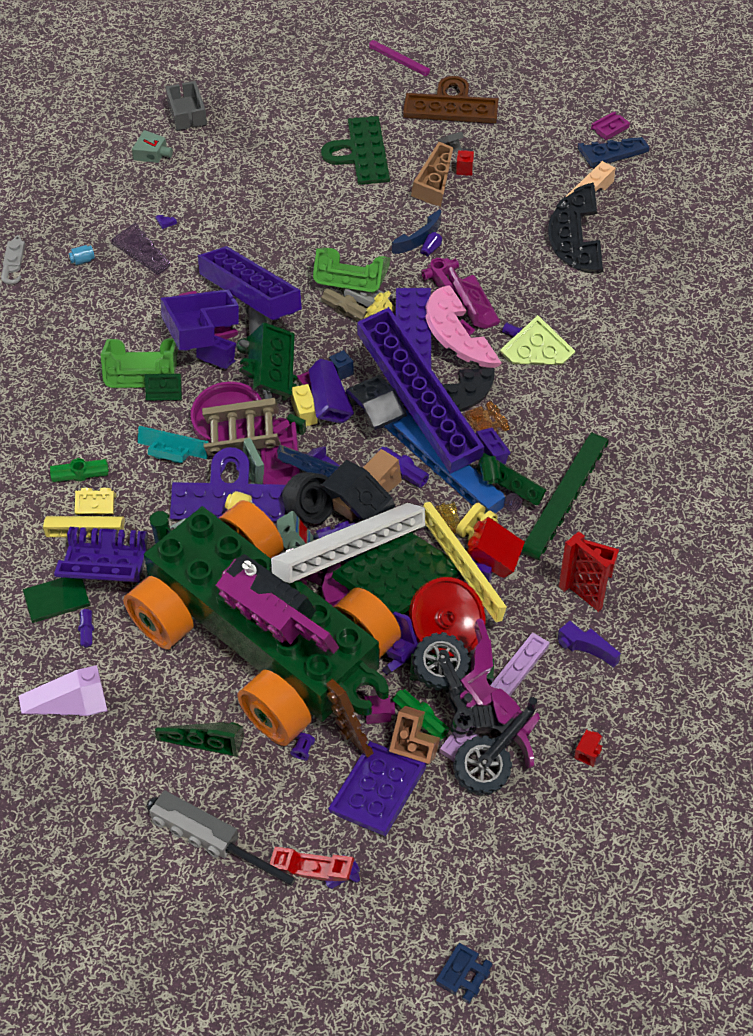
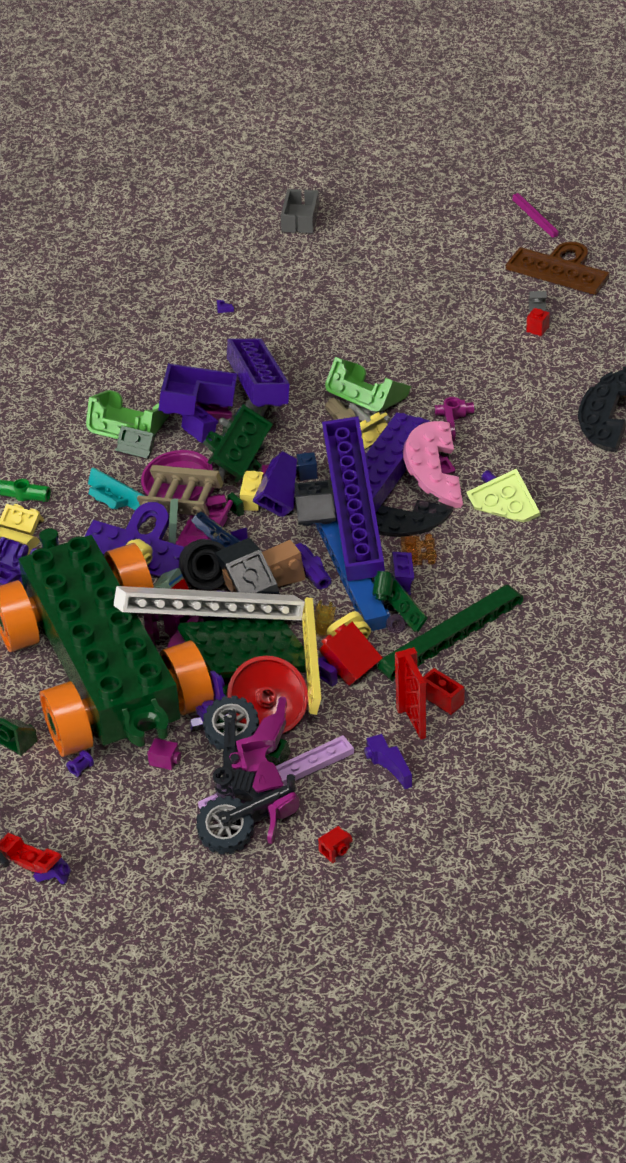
camera: 25 degrees right, 10 degrees down
(13, 260) = (69, 306): light grey plate -> none
(81, 254) = (130, 316): dark azure brick -> none
(139, 247) = (186, 324): clear purple wing -> none
(151, 148) = (246, 240): sand green torso -> none
(271, 603) = (90, 618): magenta piece -> none
(346, 718) = (120, 746): reddish brown wing -> none
(366, 148) = (450, 291): dark green plate -> none
(377, 789) = (124, 816): dark purple plate -> none
(405, 243) = (453, 376): dark blue slope -> none
(408, 739) = (173, 781): nougat brick -> none
(431, 243) = (460, 385): dark purple cone -> none
(431, 724) = (198, 770): green piece -> none
(432, 178) = (499, 325): medium nougat wedge -> none
(457, 969) = (104, 978): dark blue plate -> none
(475, 300) = (469, 443): magenta piece -> none

